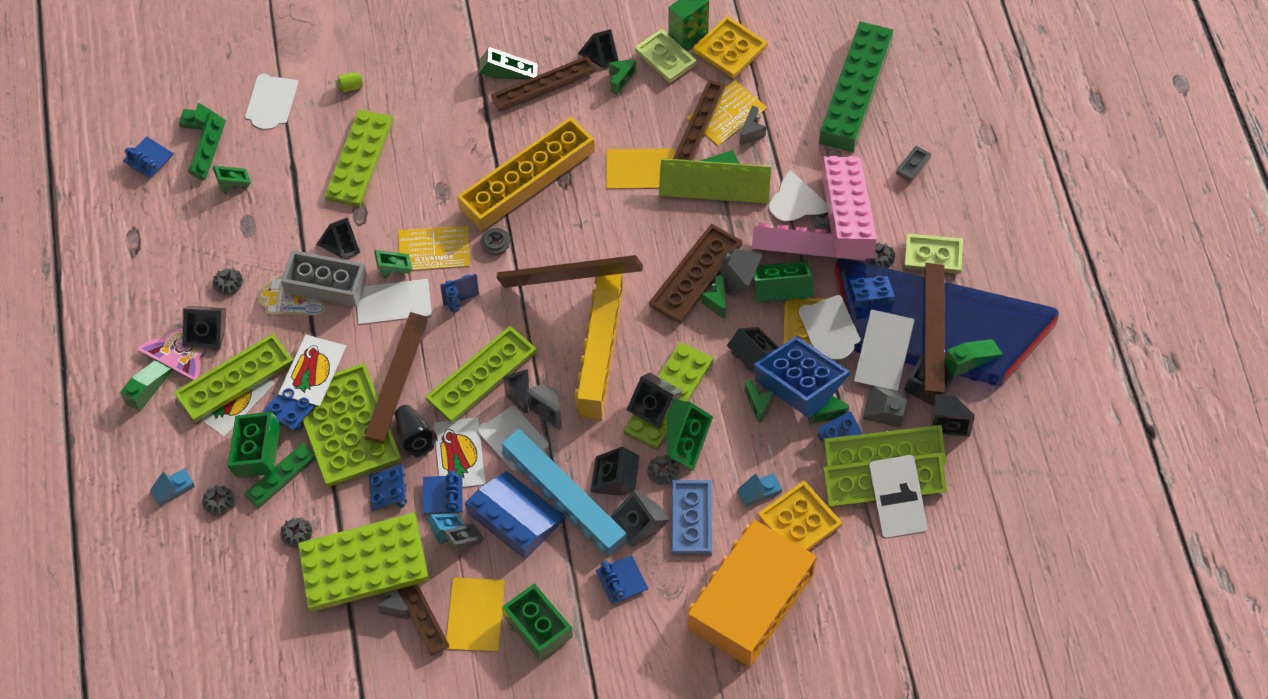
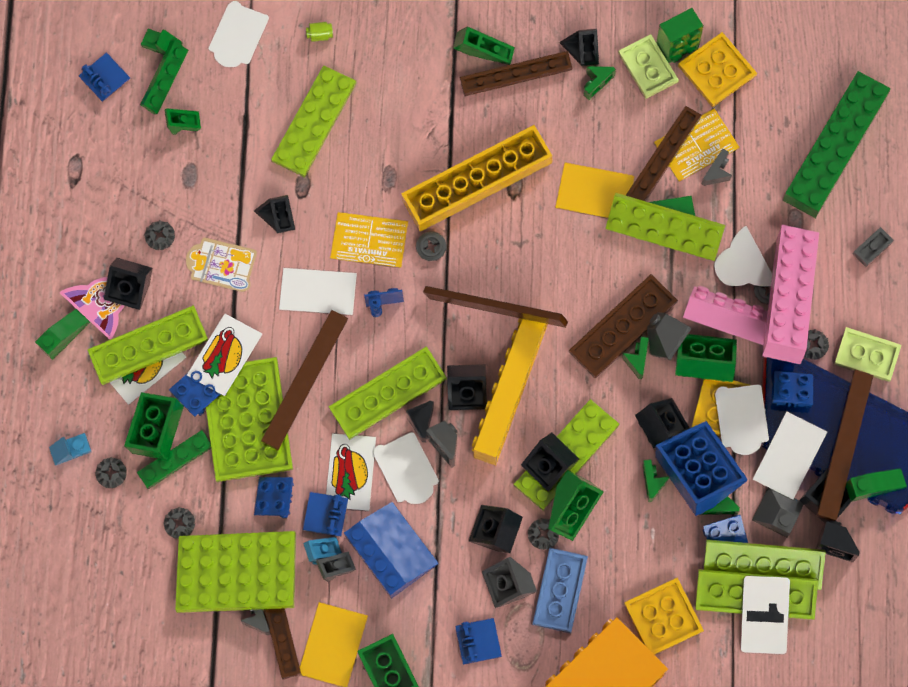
camera: 15 degrees right, 15 degrees up
(324, 278) = (253, 256): light grey brick -> none
(392, 262) = (324, 251): green slope -> none
(413, 432) = (309, 442): black cone -> none
(558, 354) = (466, 387): none -> black slope
(564, 493) = (441, 539): medium azure brick -> none
(758, 489) = (632, 575): dark azure slope -> none

